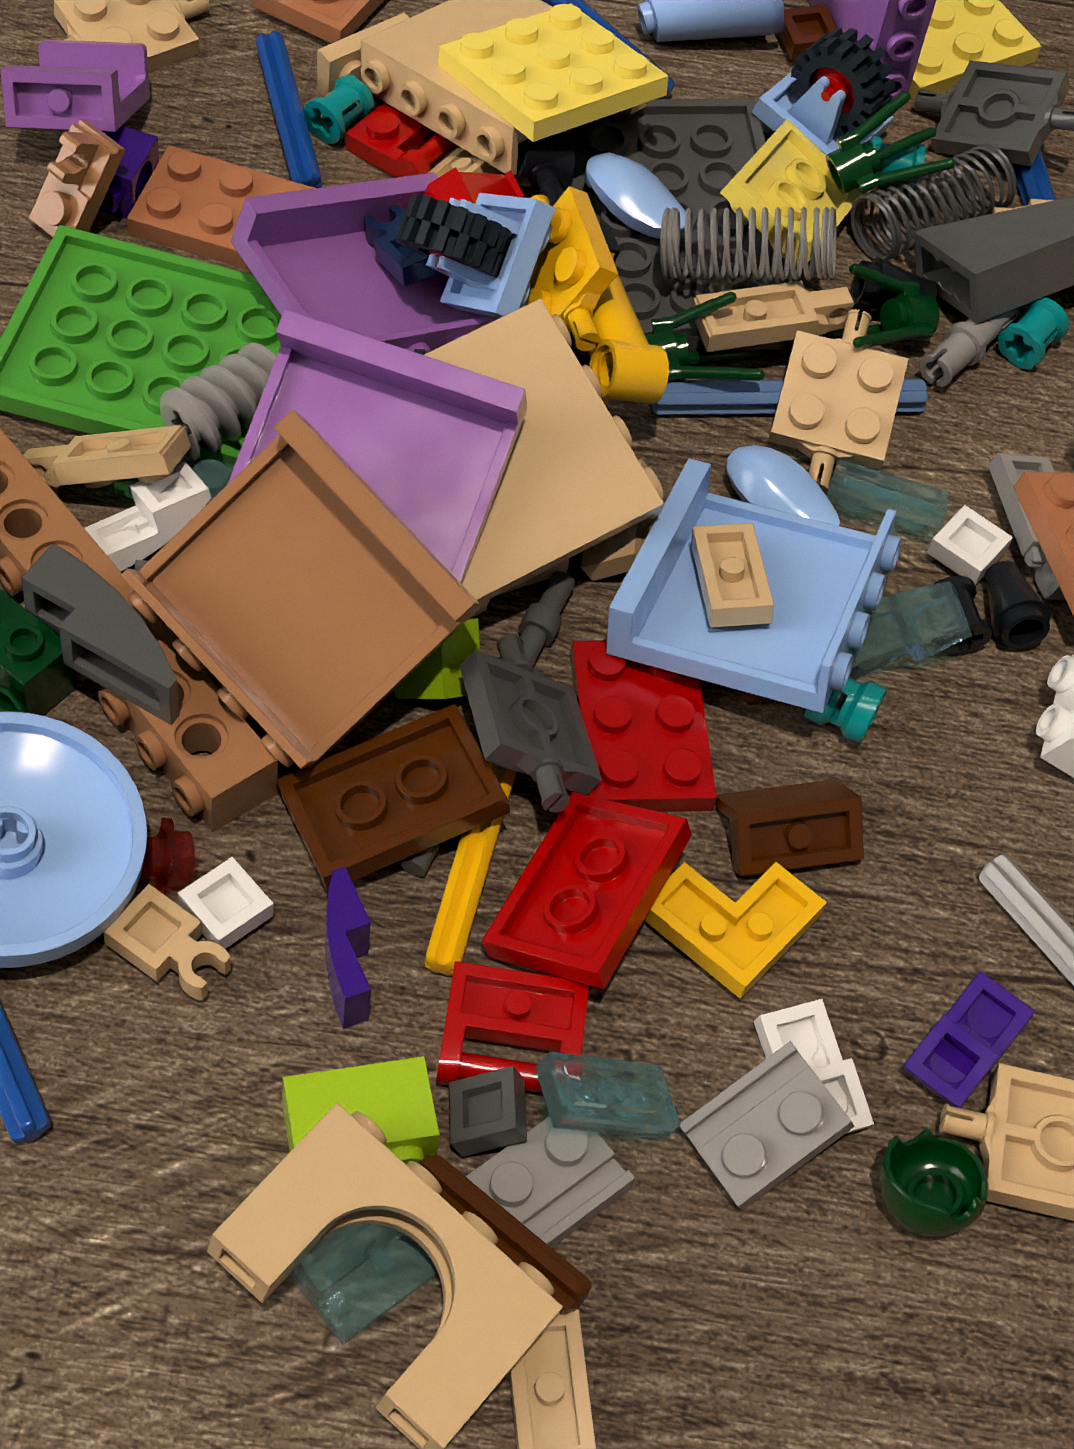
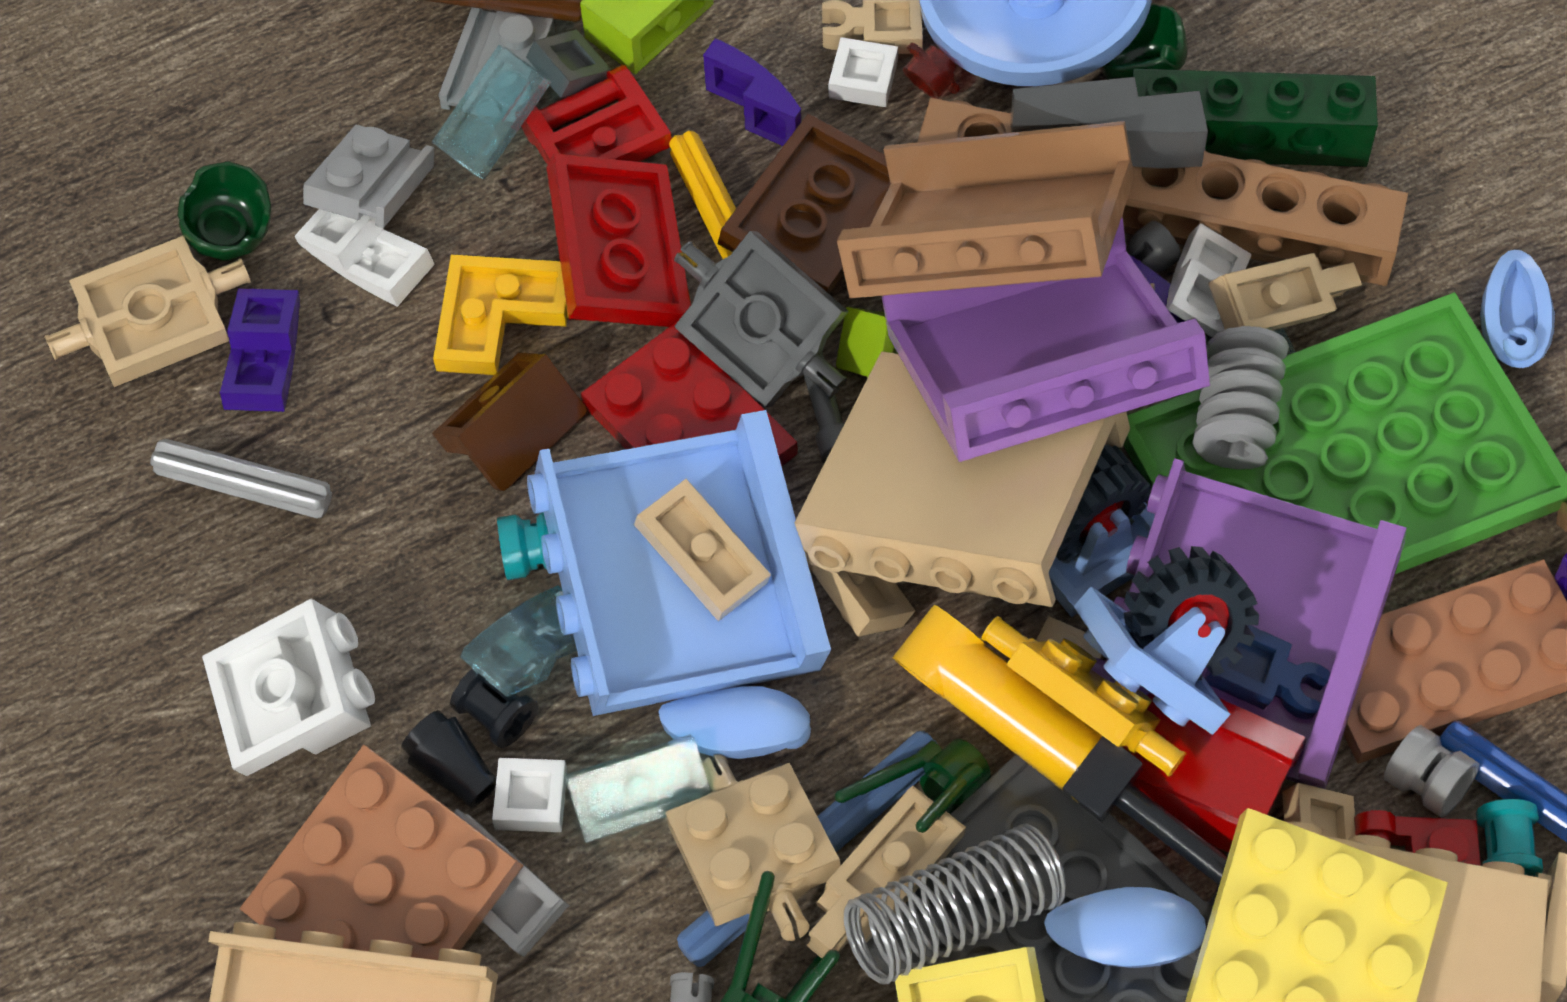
camera: 155 degrees right, 5 degrees up
(345, 155) = (1431, 771): none -> light grey wheel

